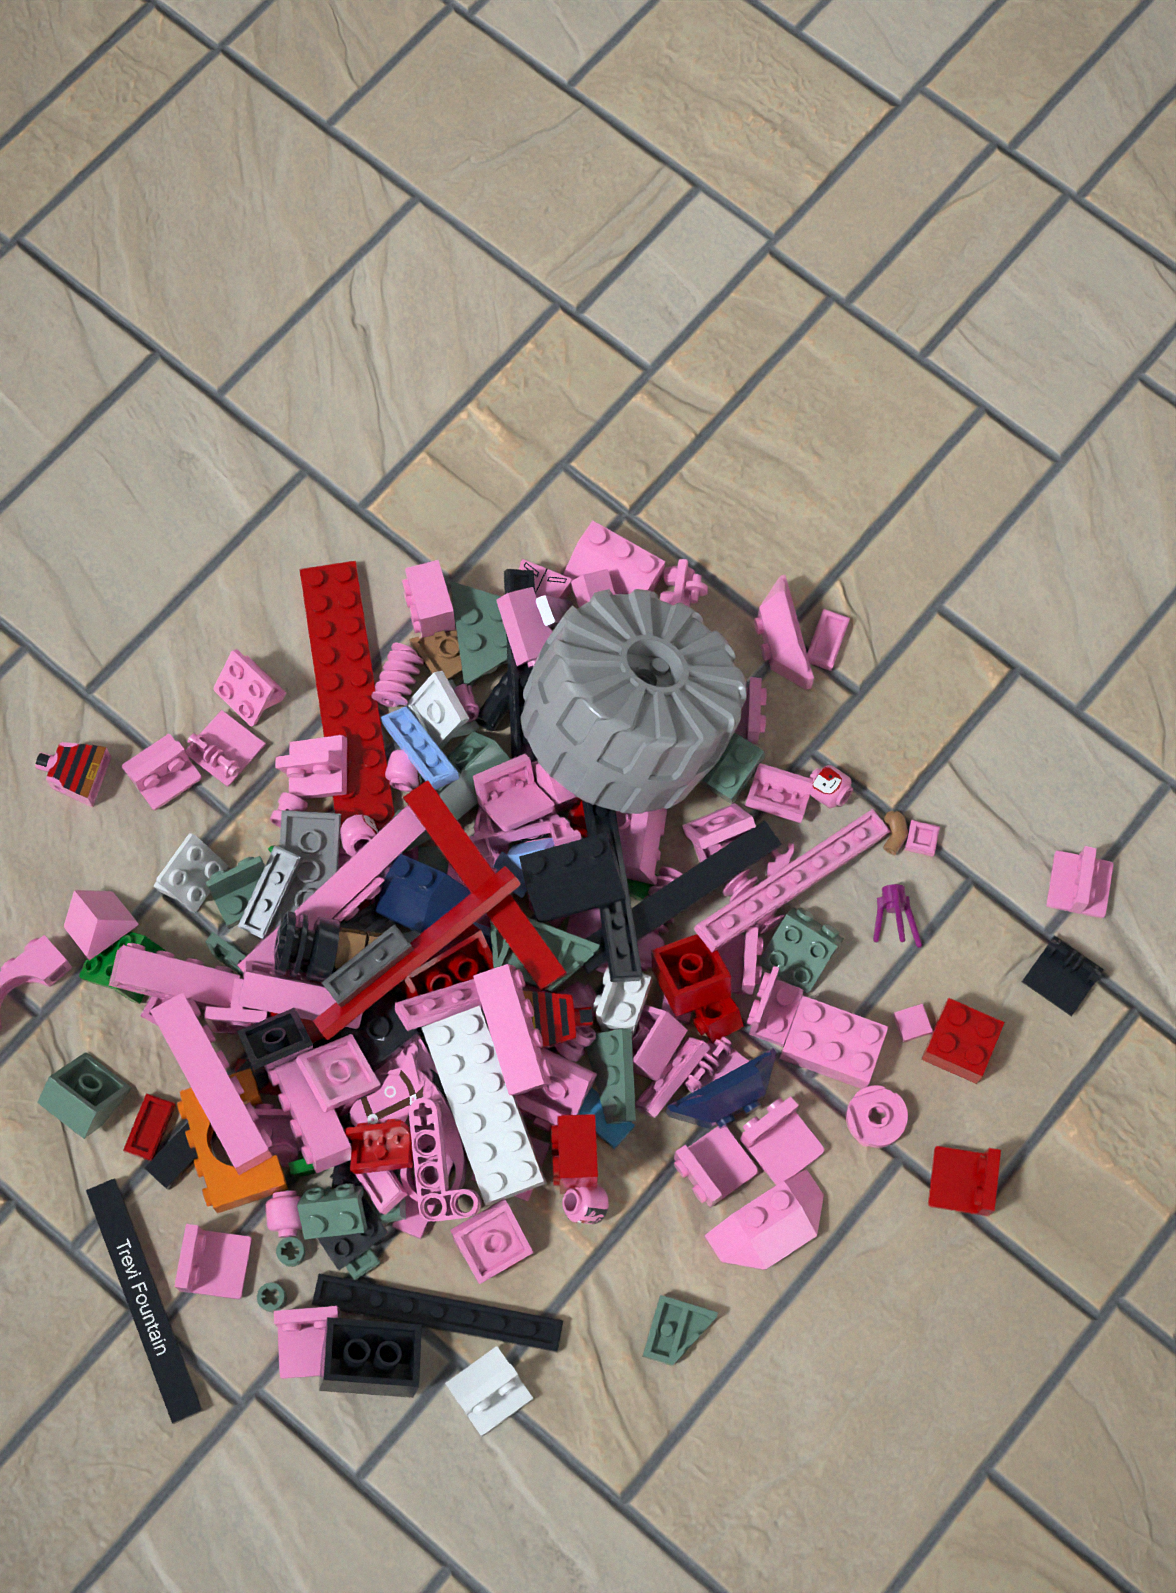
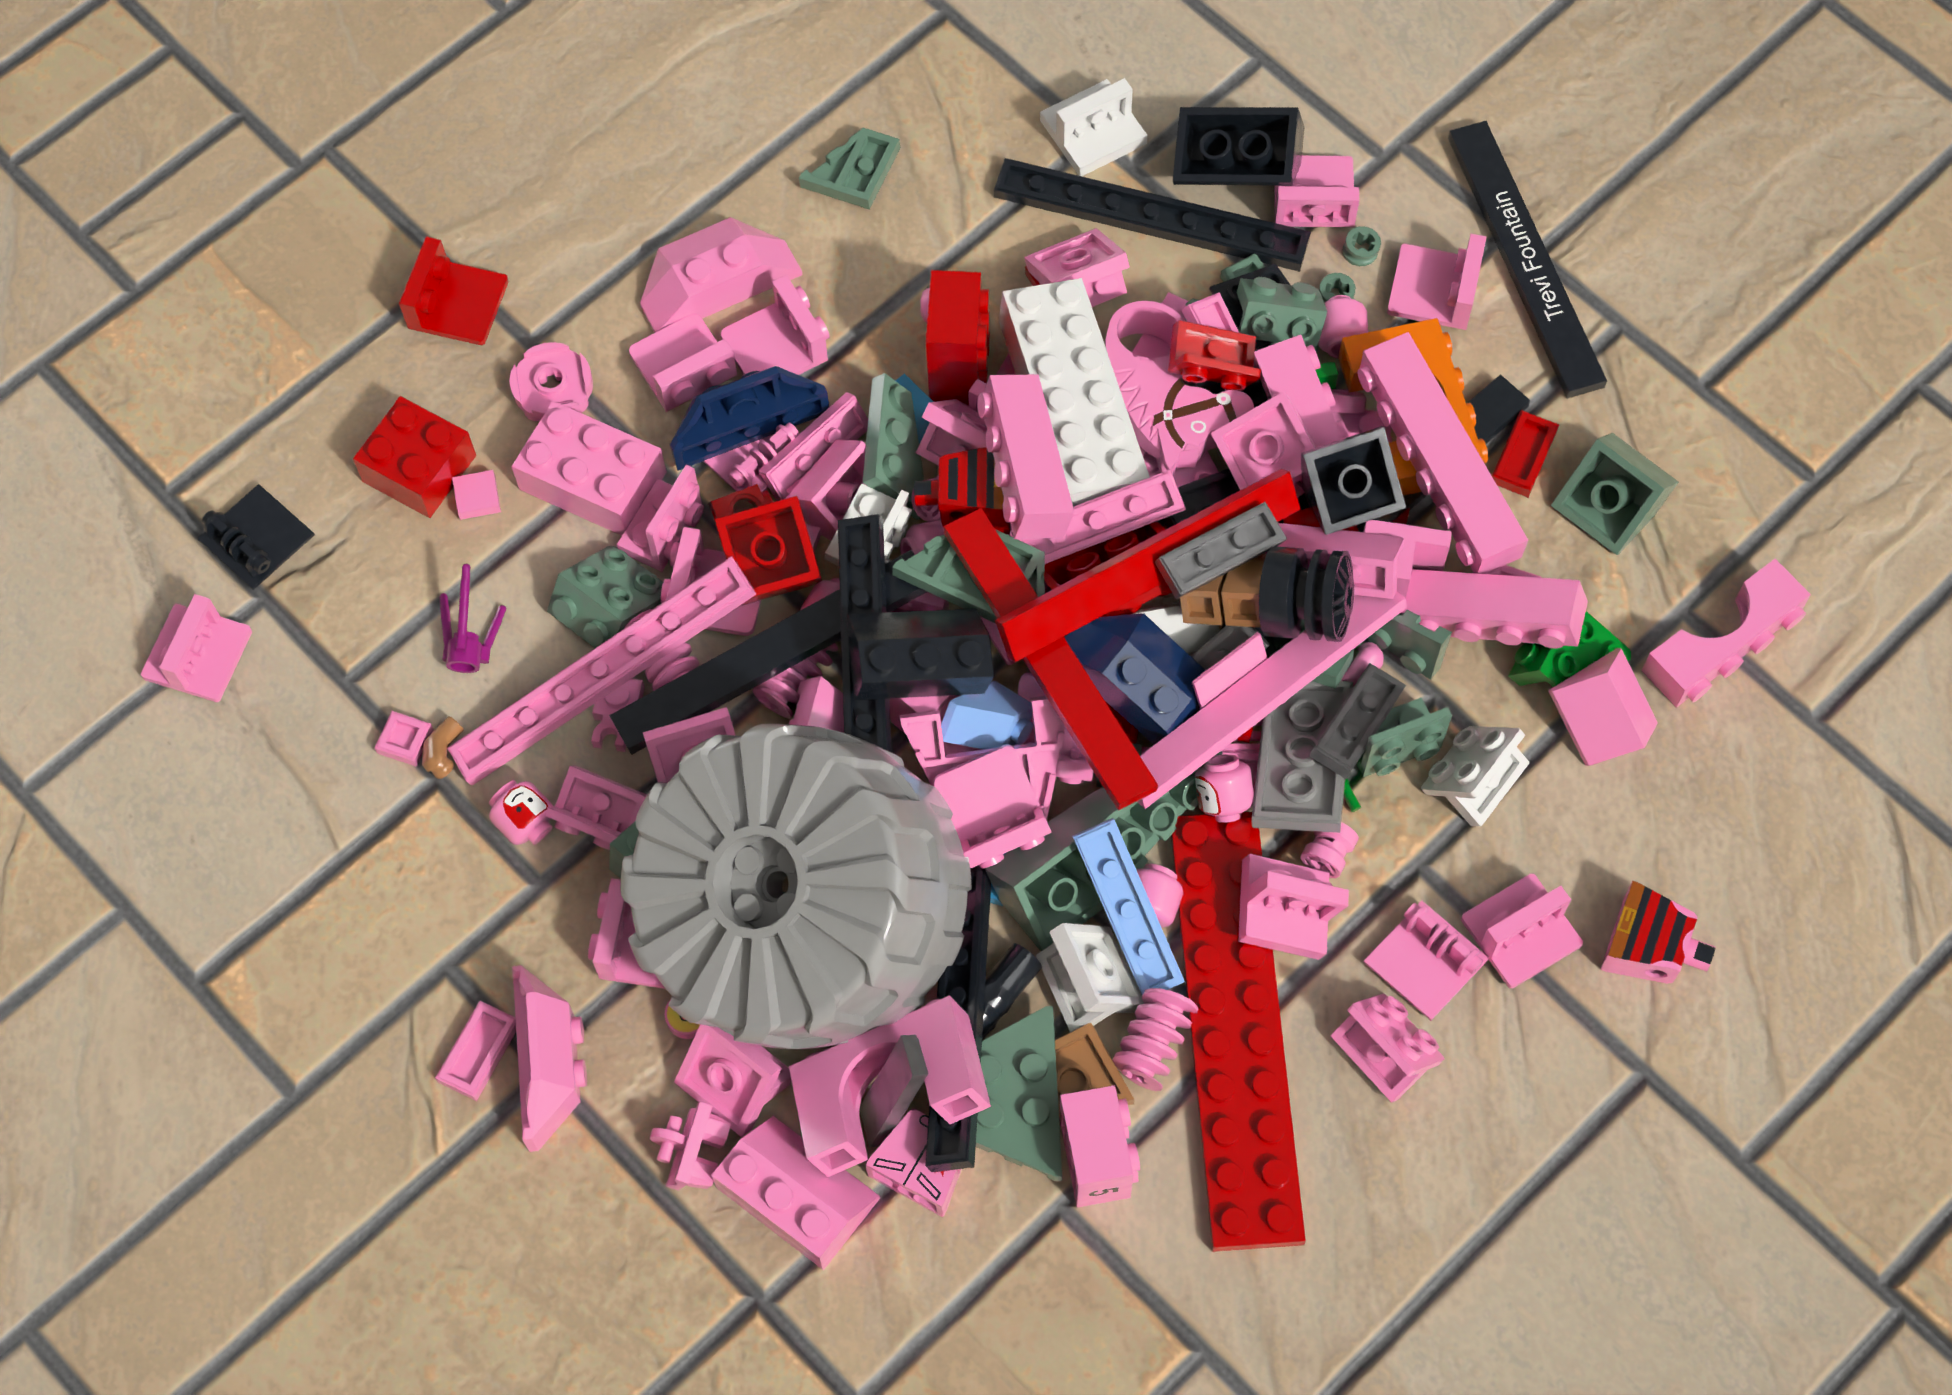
camera: 170 degrees left, 5 degrees down
(437, 1159) = (1142, 290): bright pink beam -> none
(467, 700) = (1051, 979): bright pink pin -> none

